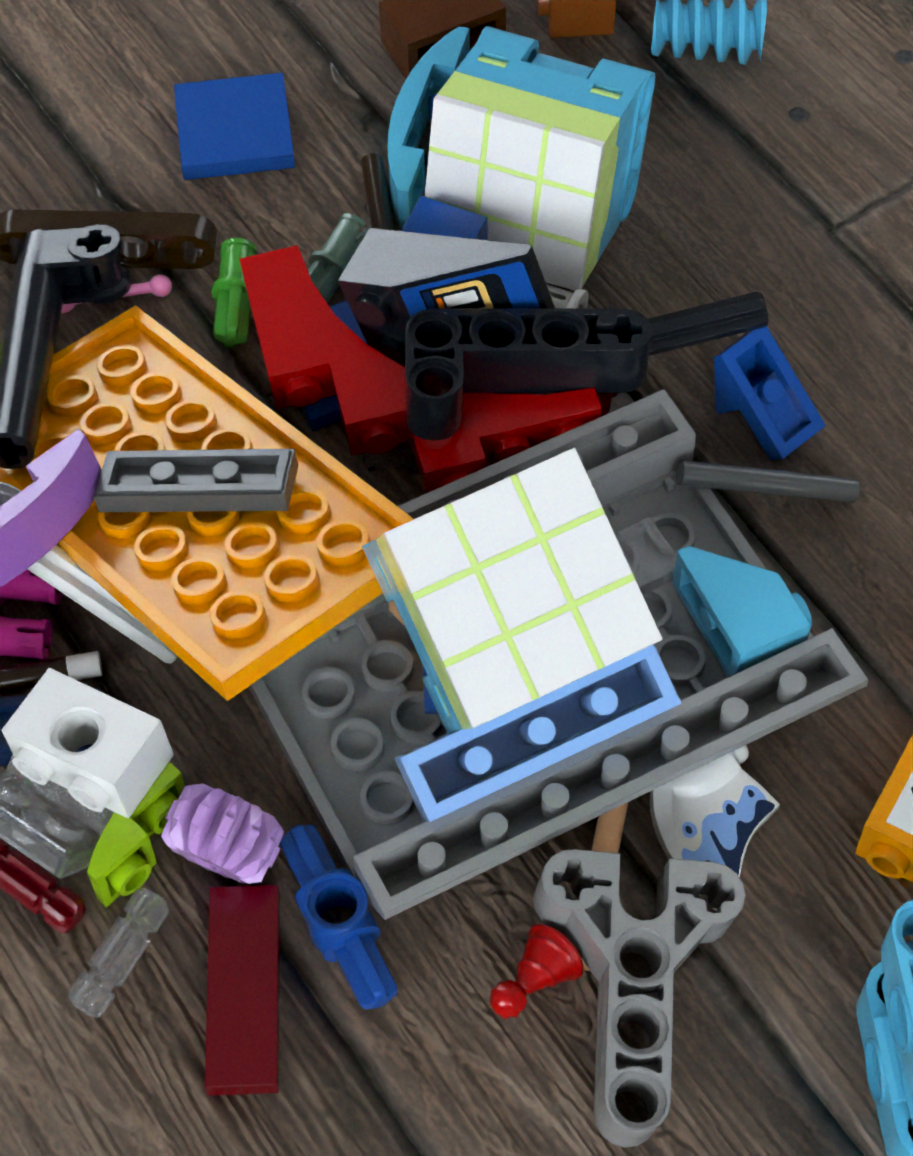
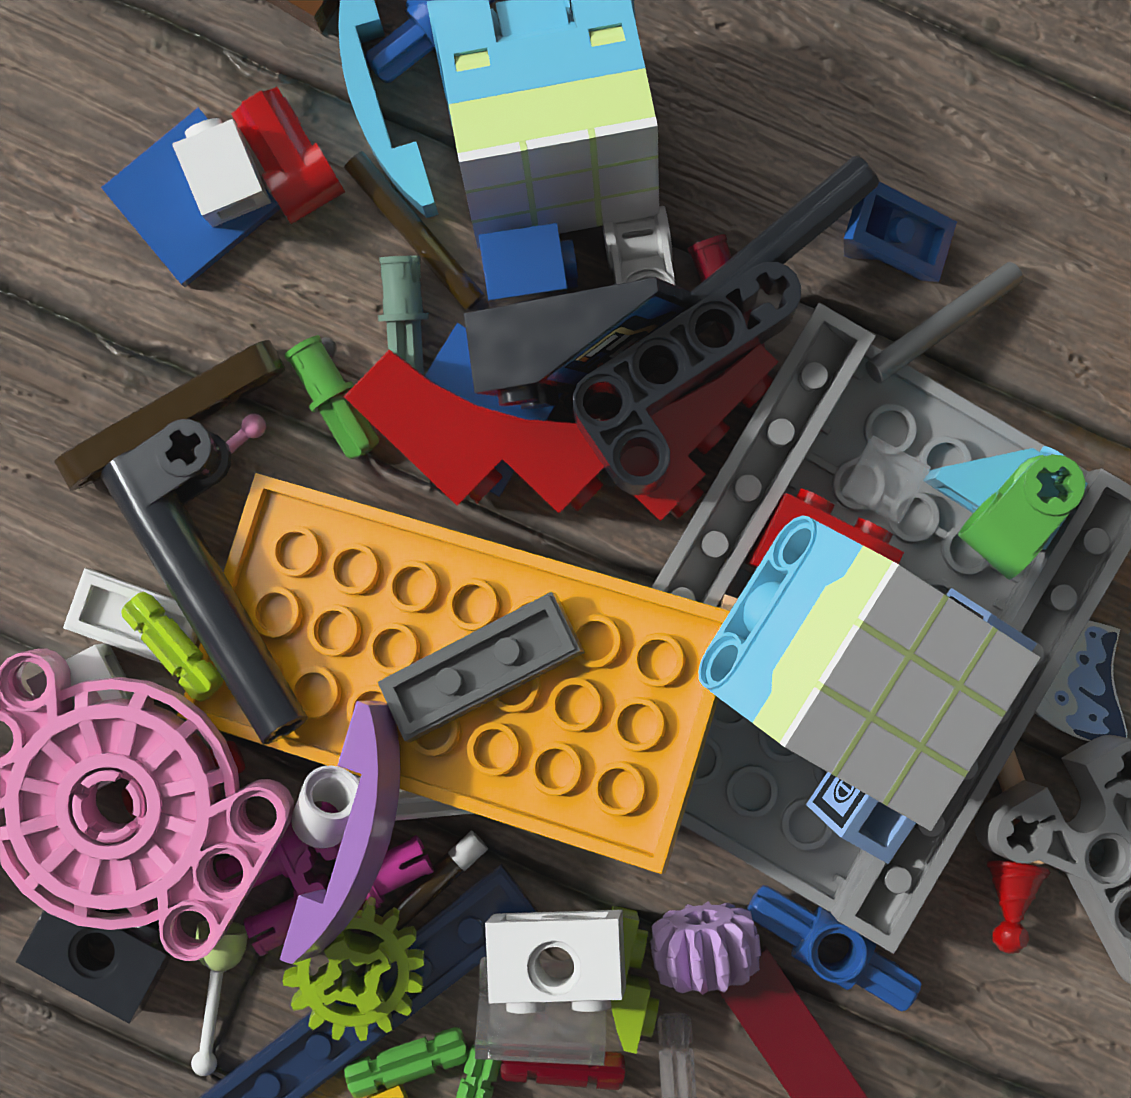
camera: 30 degrees left, 30 degrees up
(265, 103) = (220, 171): none -> white brick
(323, 134) = (293, 166): none -> red piece
(731, 597) = (1017, 523): none -> bright green piece

